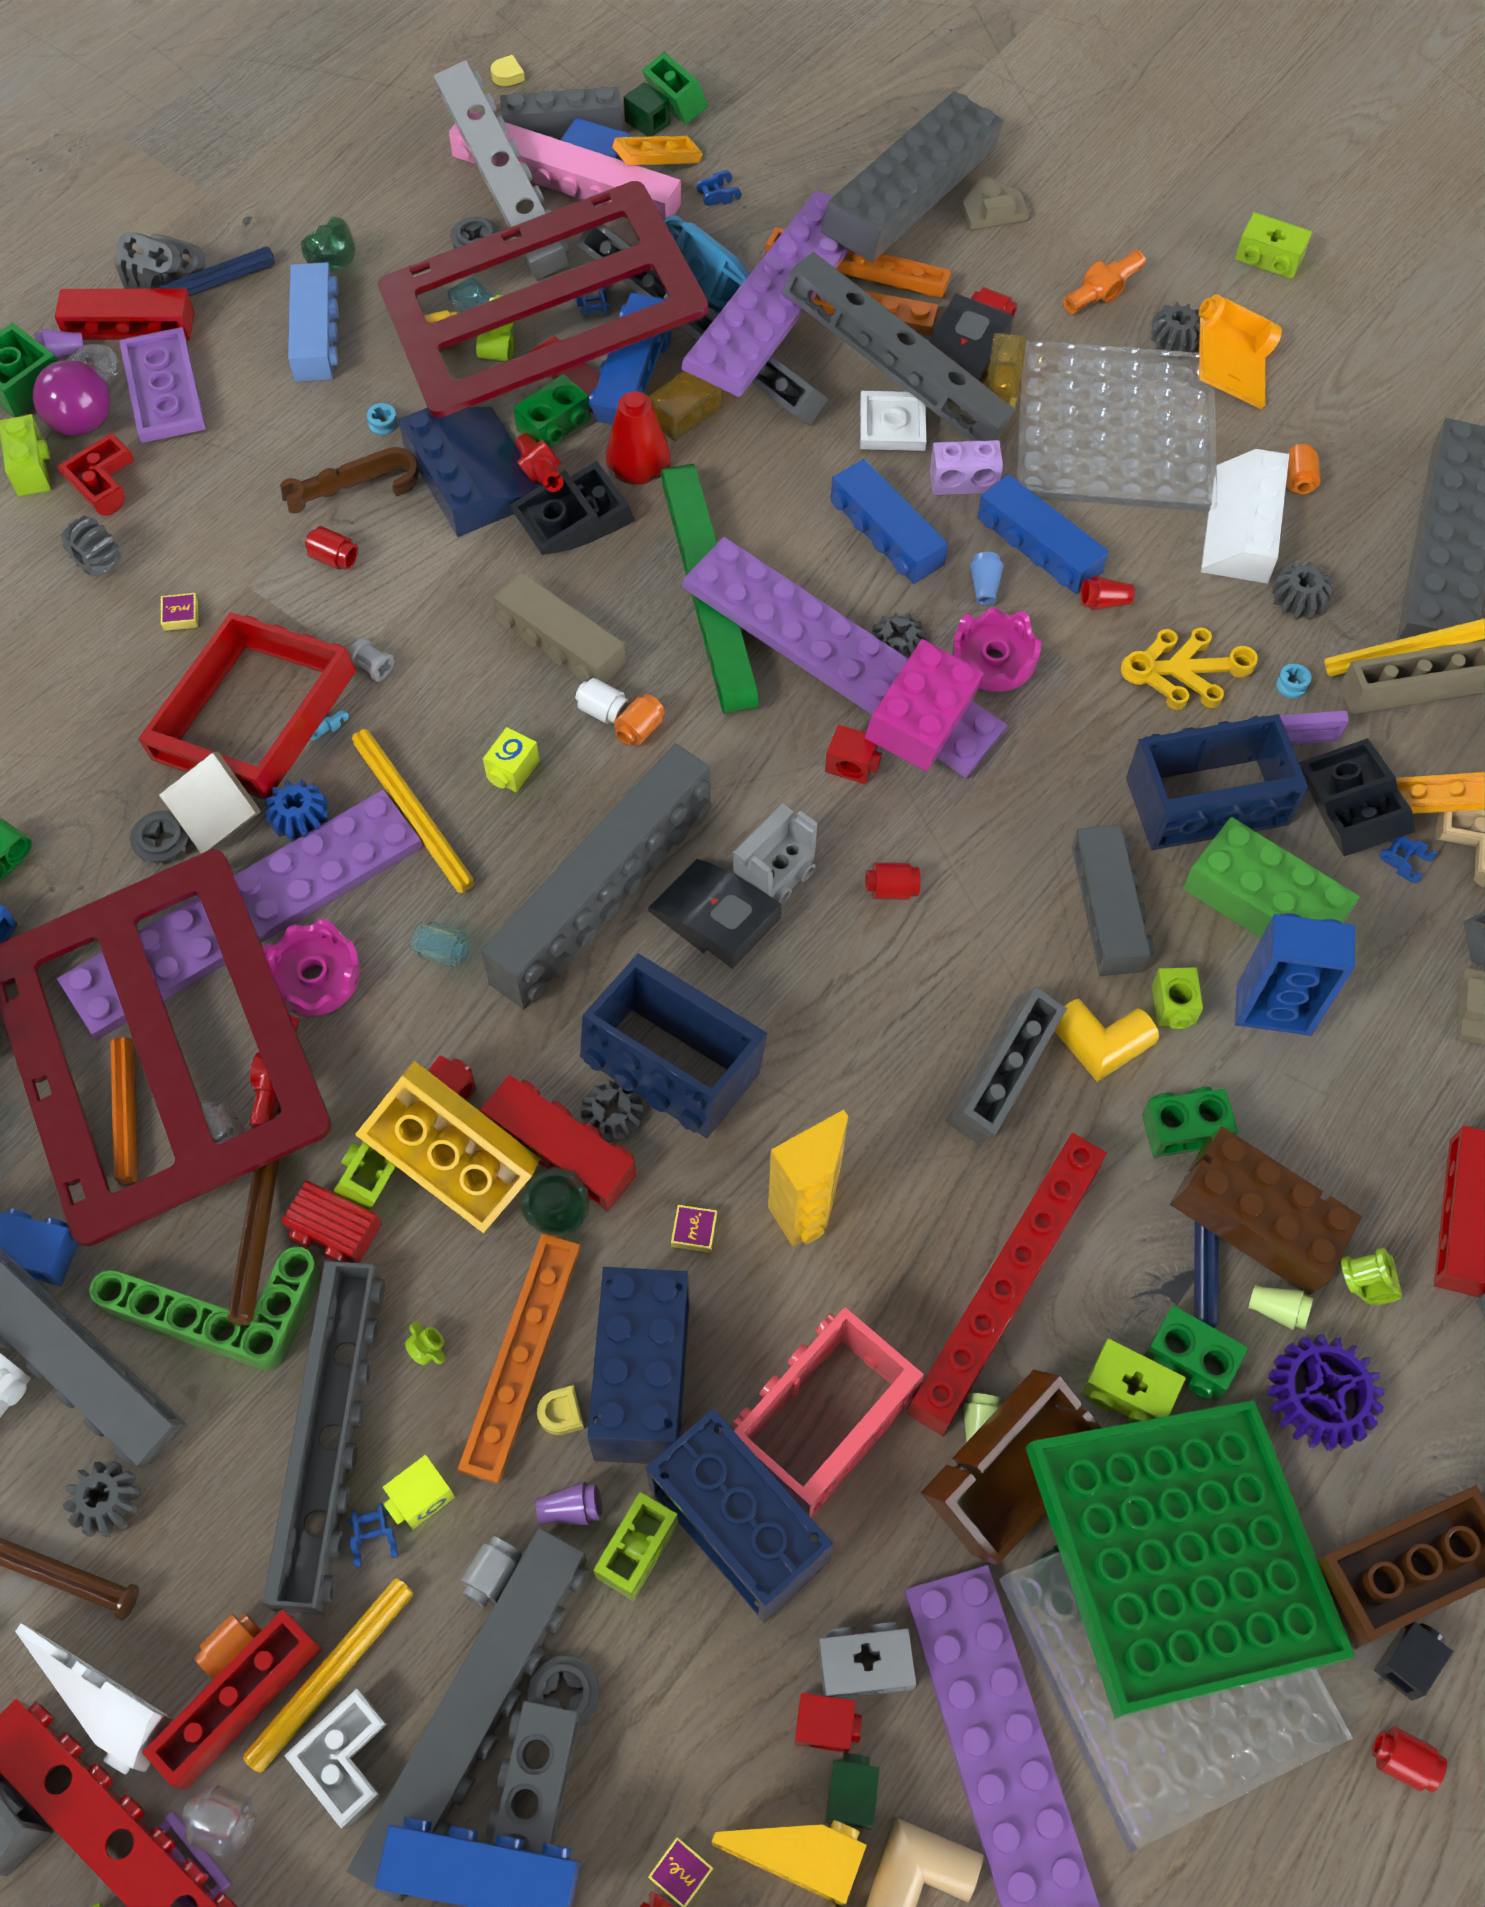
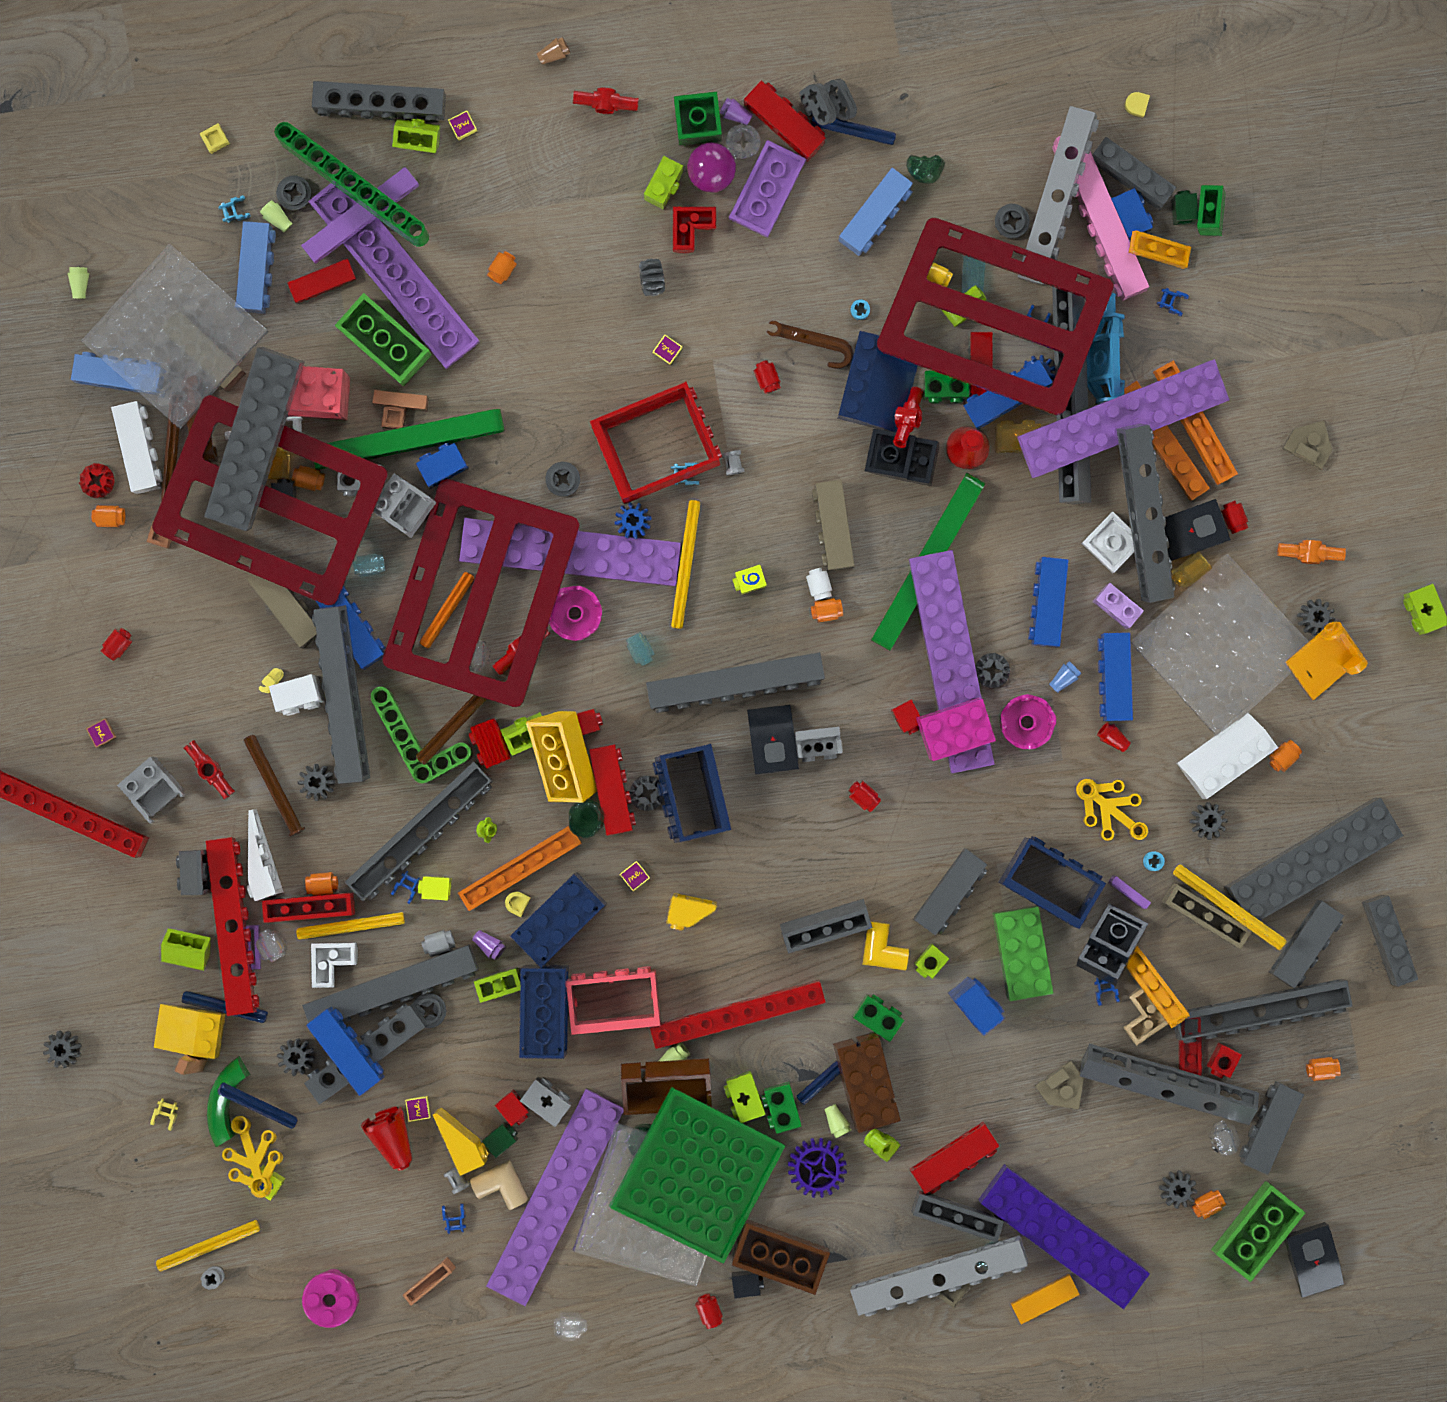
camera: 45 degrees right, 25 degrees up
(210, 802) = (594, 488): tile -> none
(911, 176) = (1273, 398): dark grey brick -> none

